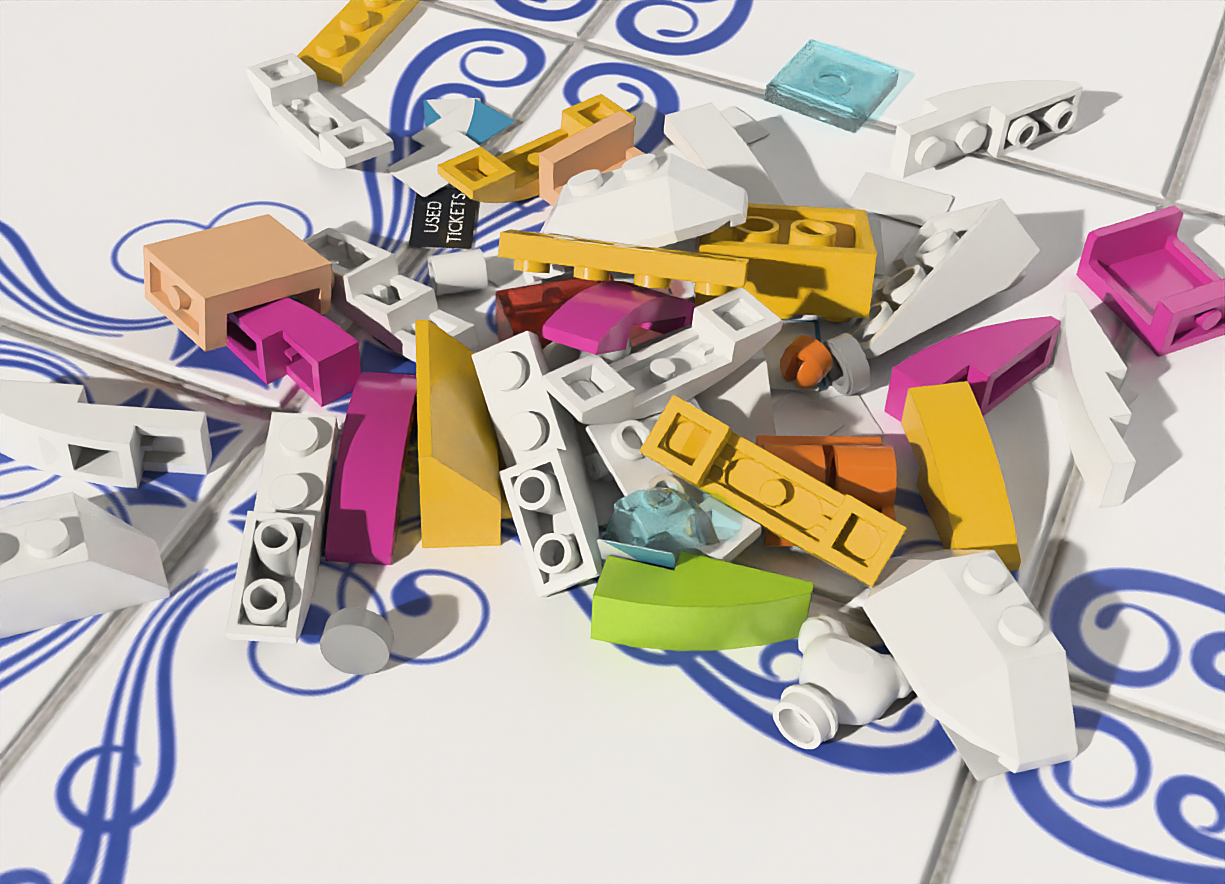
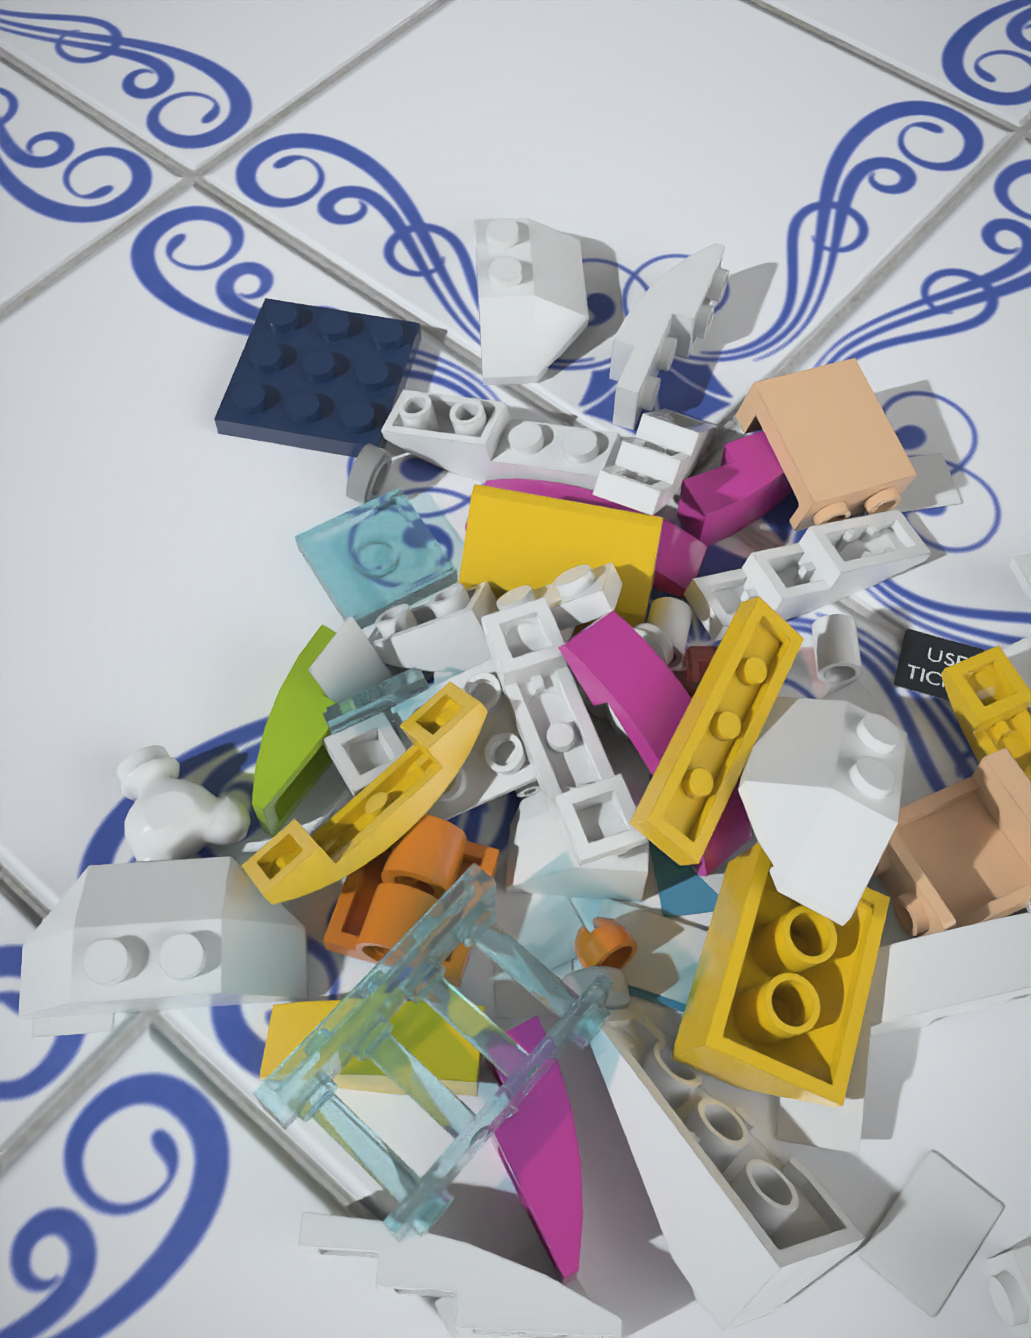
camera: 110 degrees right, 15 degrees up
(197, 751) = (318, 378): none -> dark blue plate
(304, 378) = (655, 461): none -> white slope
(463, 622) = (376, 558): none -> clear light blue tile
(952, 428) = (361, 1029): none -> clear light blue fence

